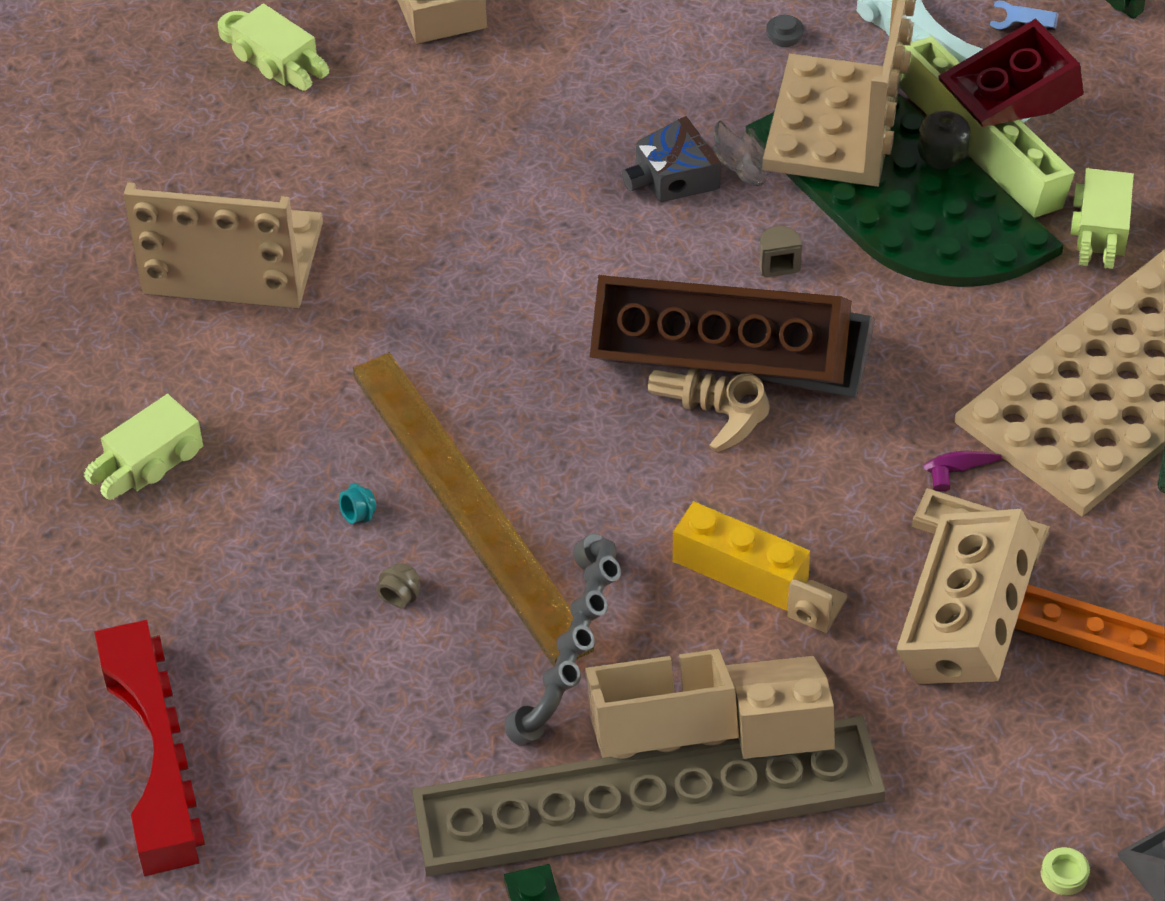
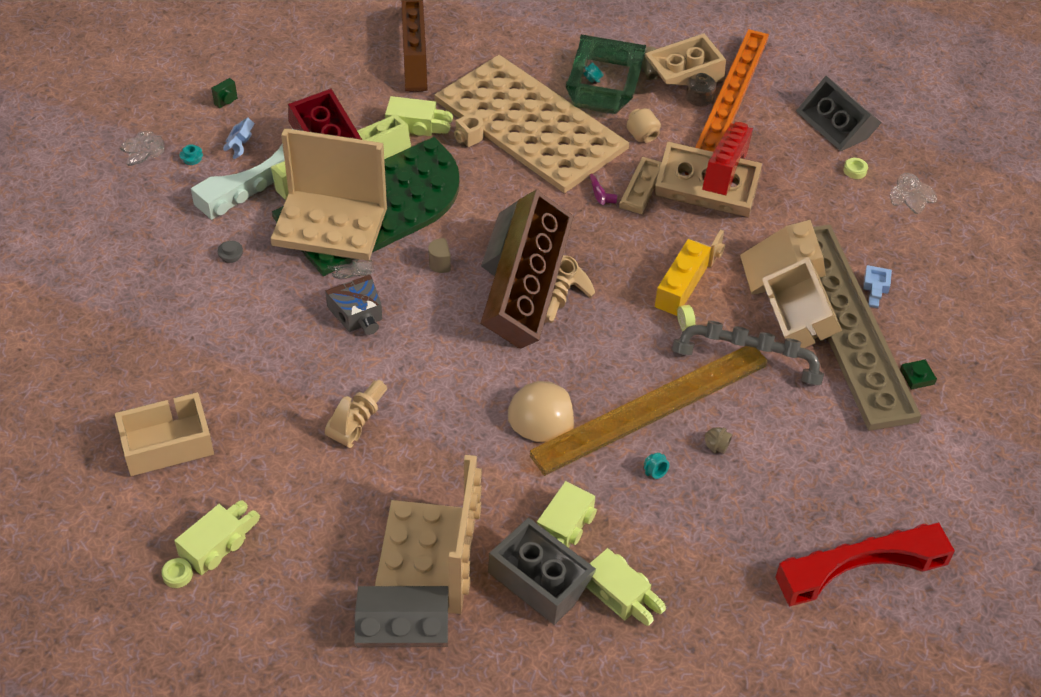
camera: 95 degrees left, 0 degrees up
(103, 227) = (401, 616): none -> dark grey slope
(170, 346) = (540, 570): none -> dark grey slope
(265, 388) = (568, 514): none -> yellowish green hinge
(447, 158) = (351, 416): none -> tan piece
(467, 369) = (541, 411): none -> tan cylinder
(652, 558) = (685, 316): none -> yellowish green tile
(748, 854) = (878, 282): none -> light blue plate
(931, 561) = (726, 158): none -> red arch
(1077, 285) = (469, 129): none -> tan plate
(1129, 527) = (643, 125): none -> tan head

